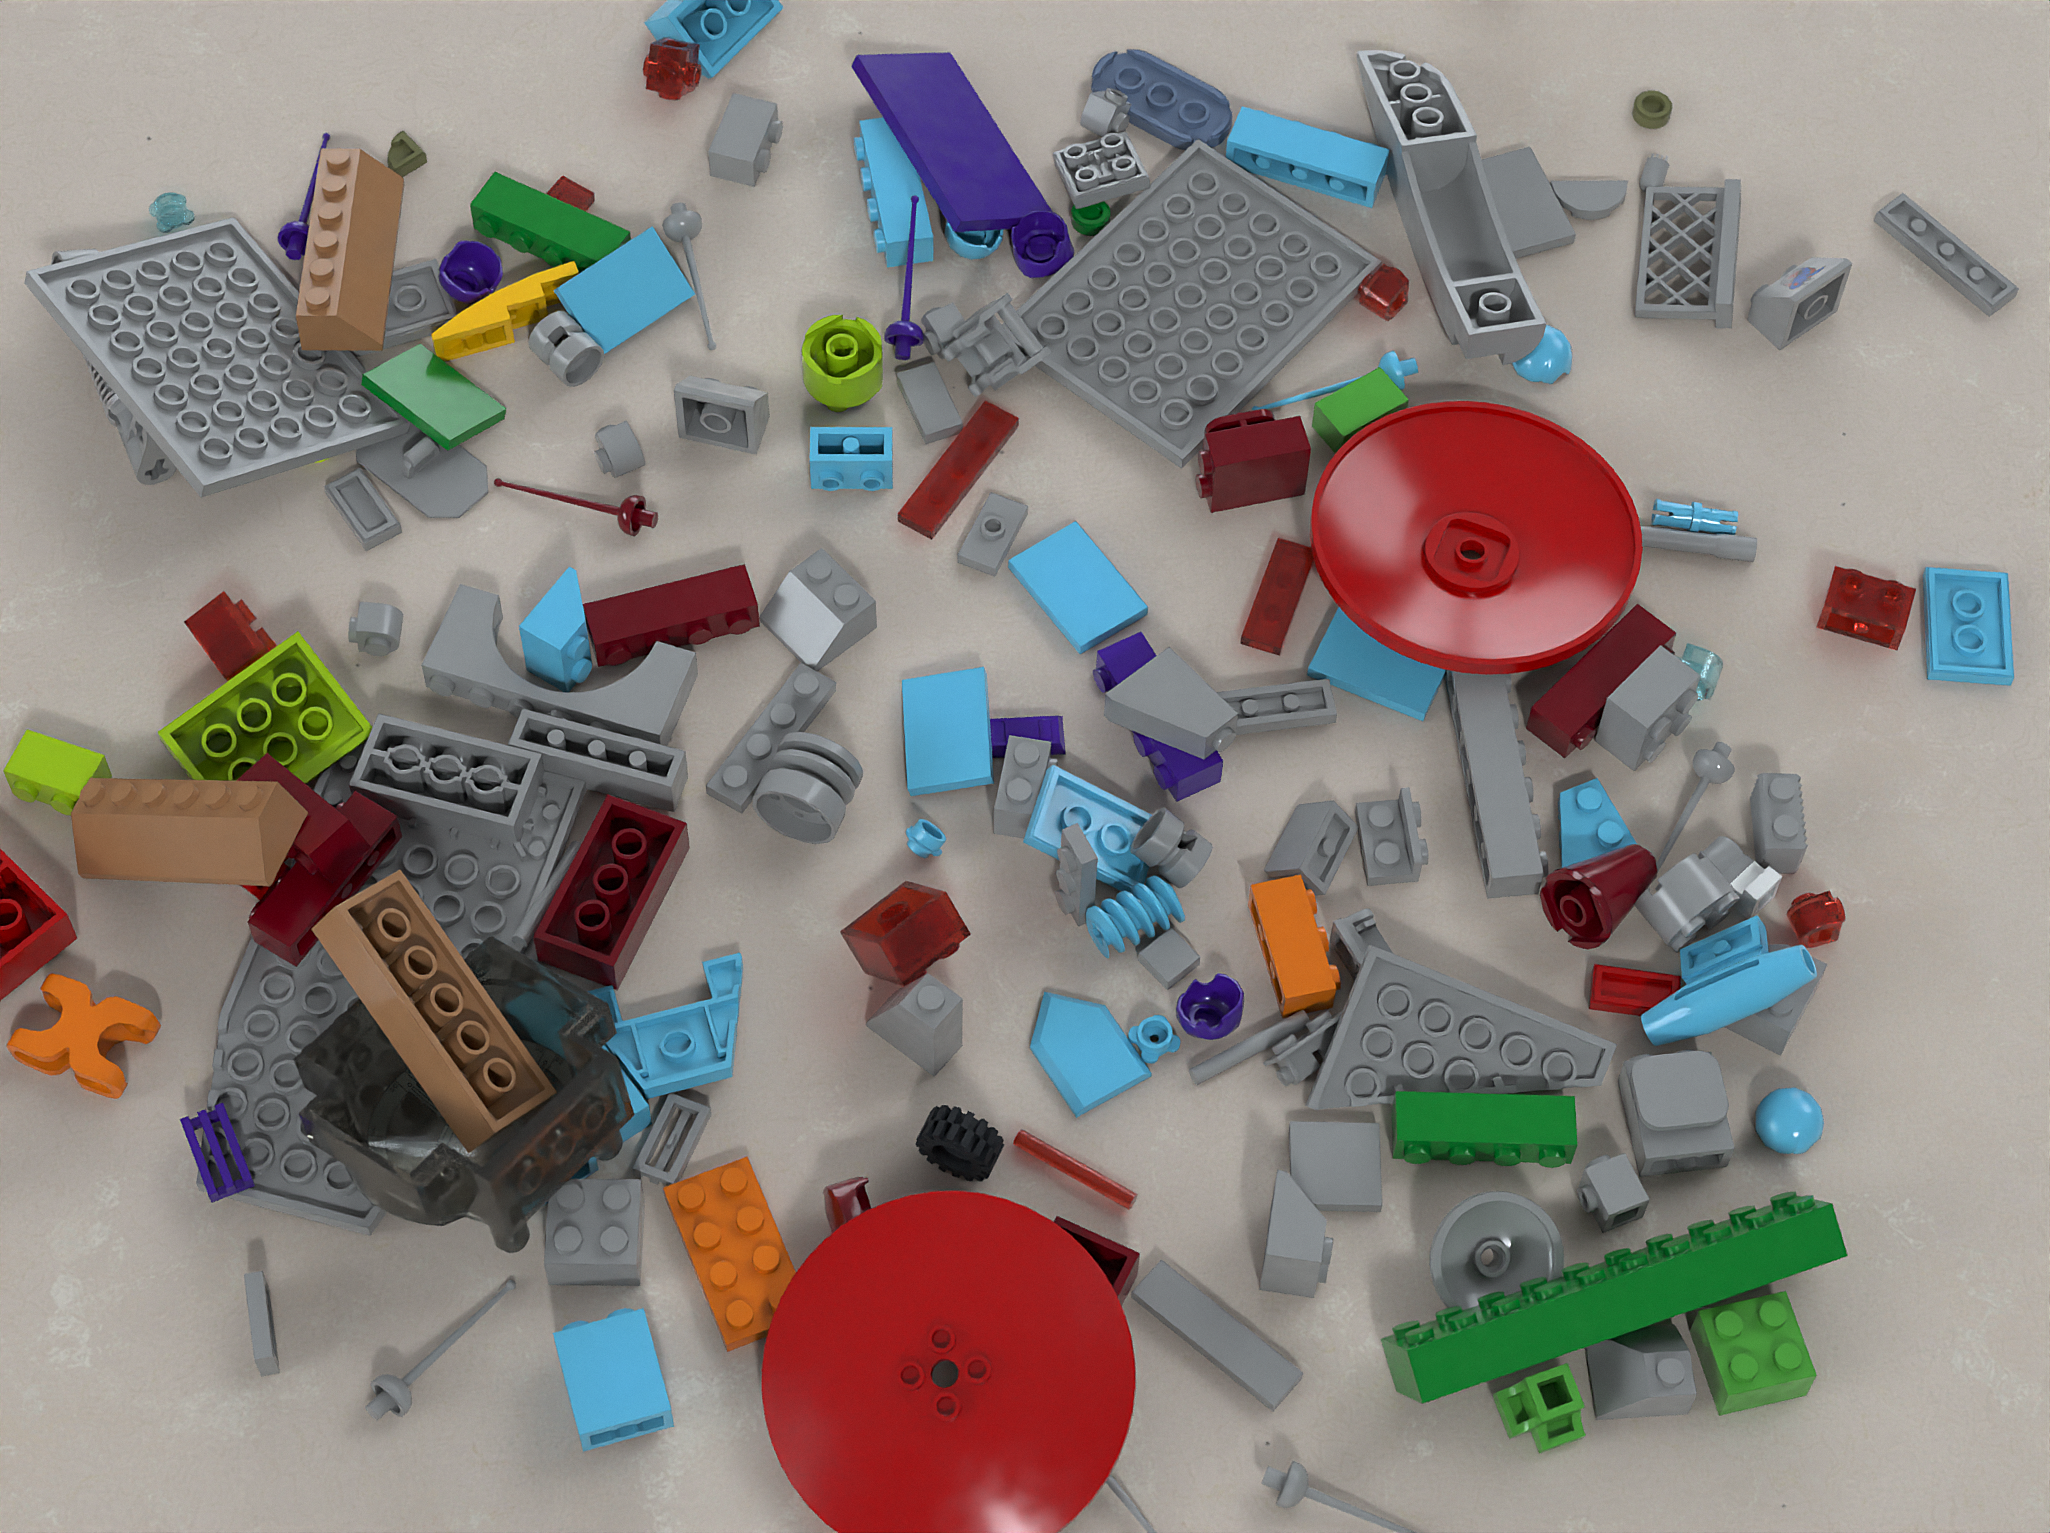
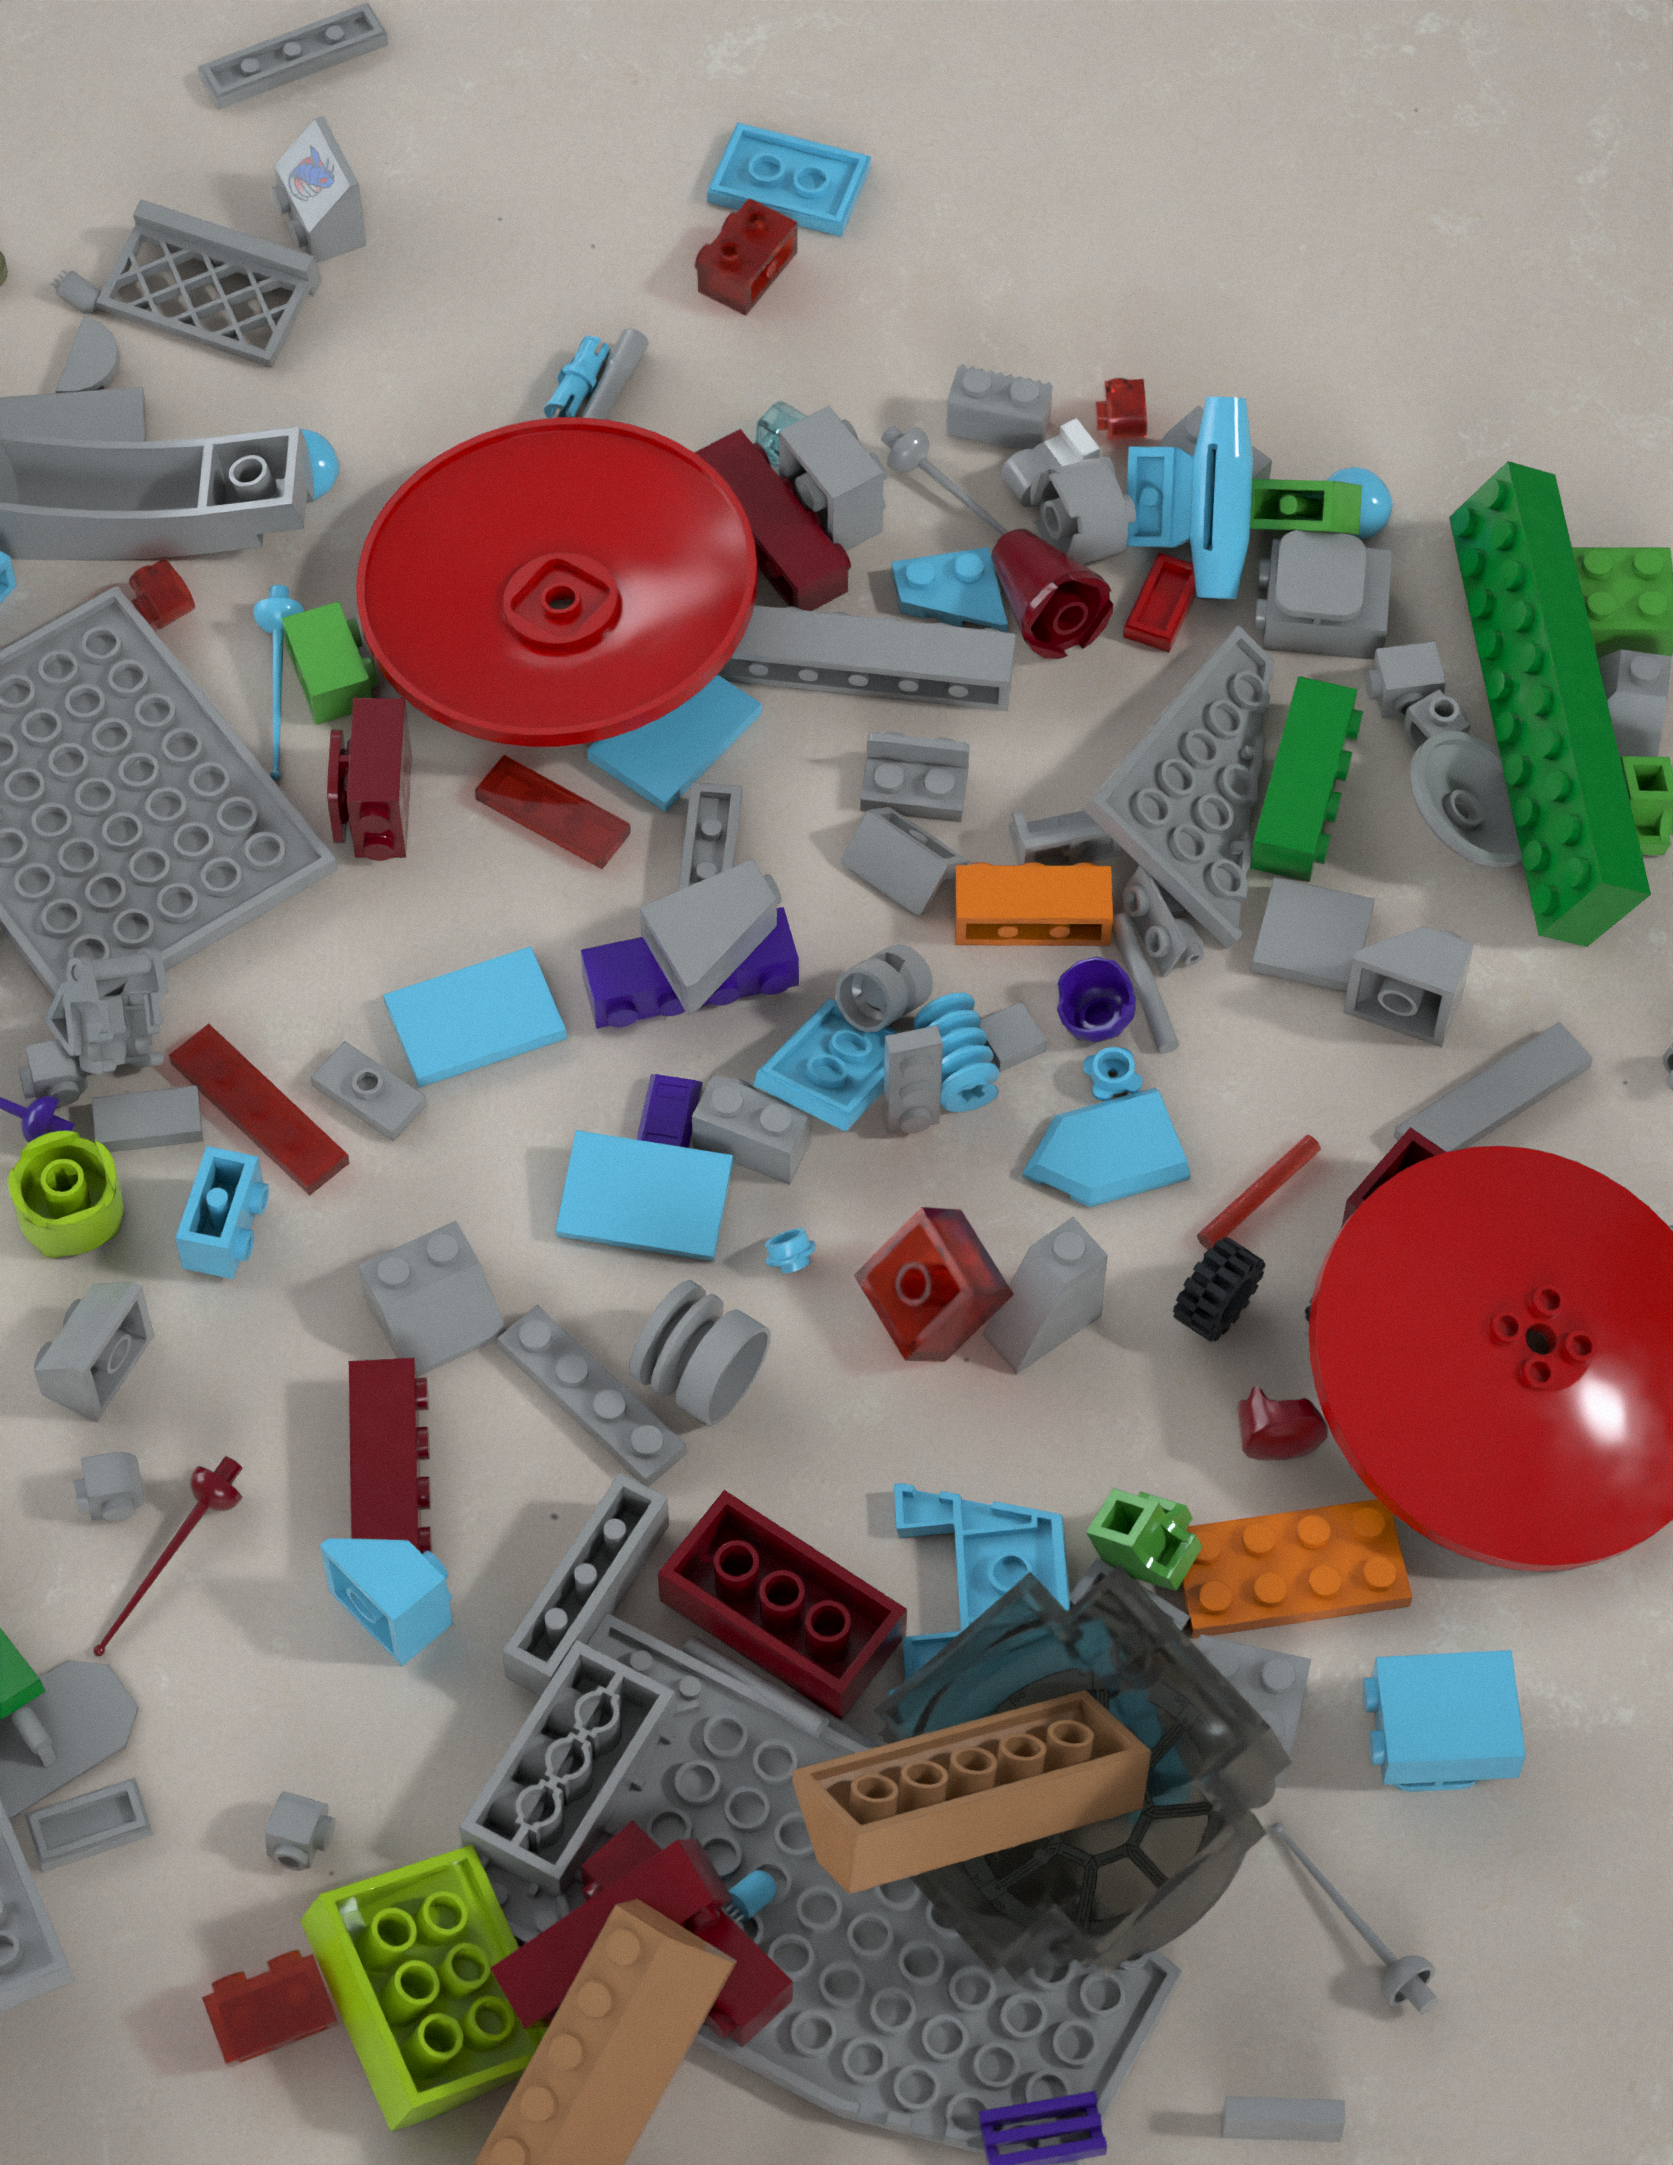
camera: 75 degrees left, 0 degrees up
(468, 665) = (387, 1719): light grey arch -> none
(727, 1131) = (1145, 1537): none -> bright green brick
(1575, 1221) = (1433, 715): none -> light grey plate
(1751, 1067) = (1305, 506): none -> bright green brick

